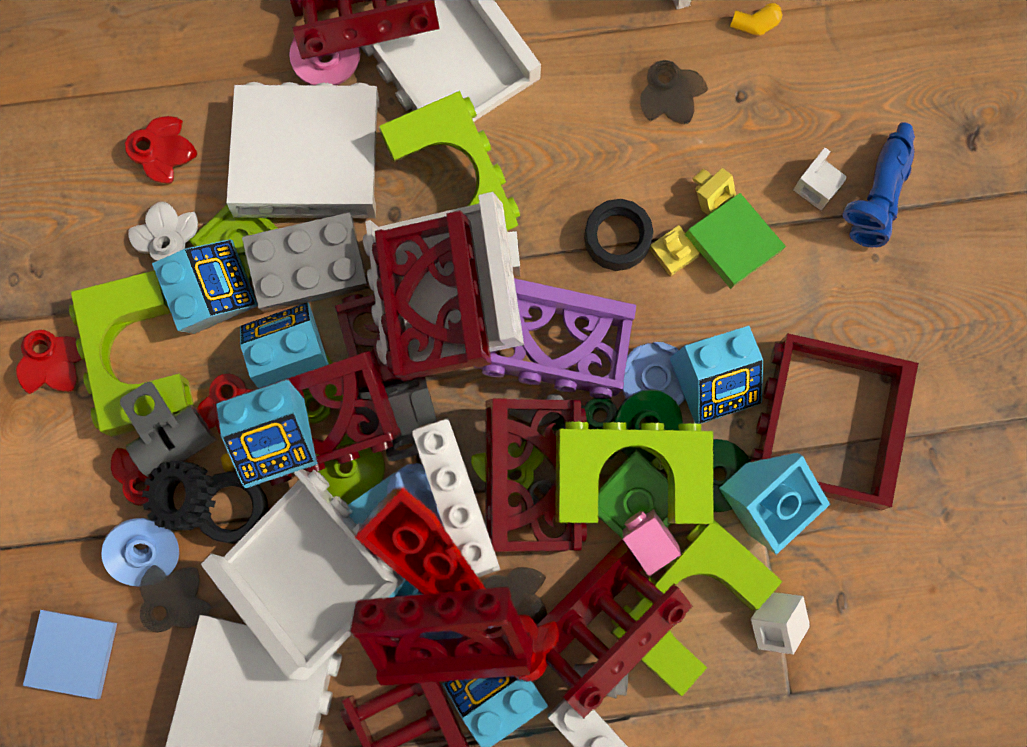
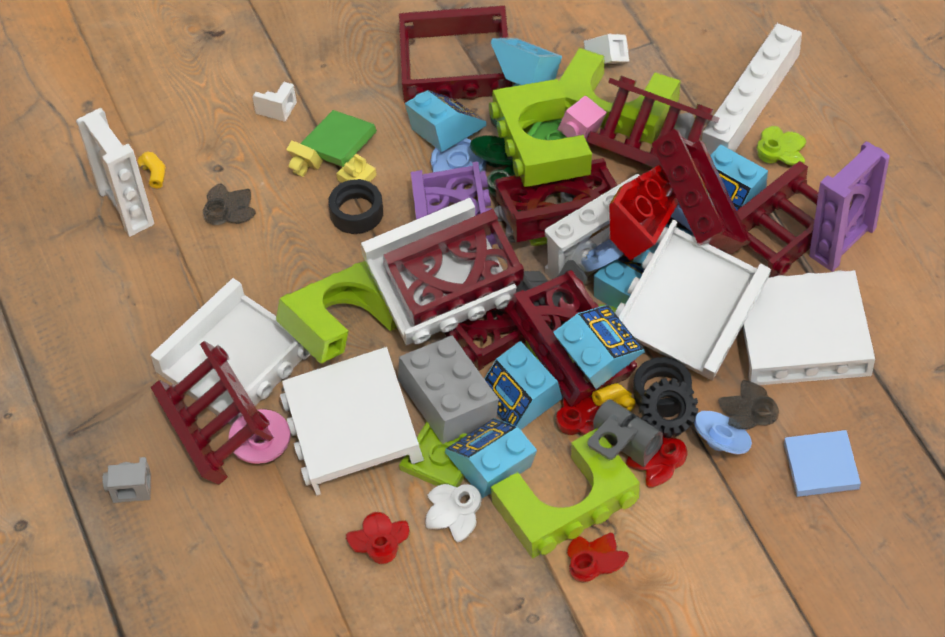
camera: 105 degrees left, 25 degrees down
(874, 218) = (250, 61): blue piece -> none

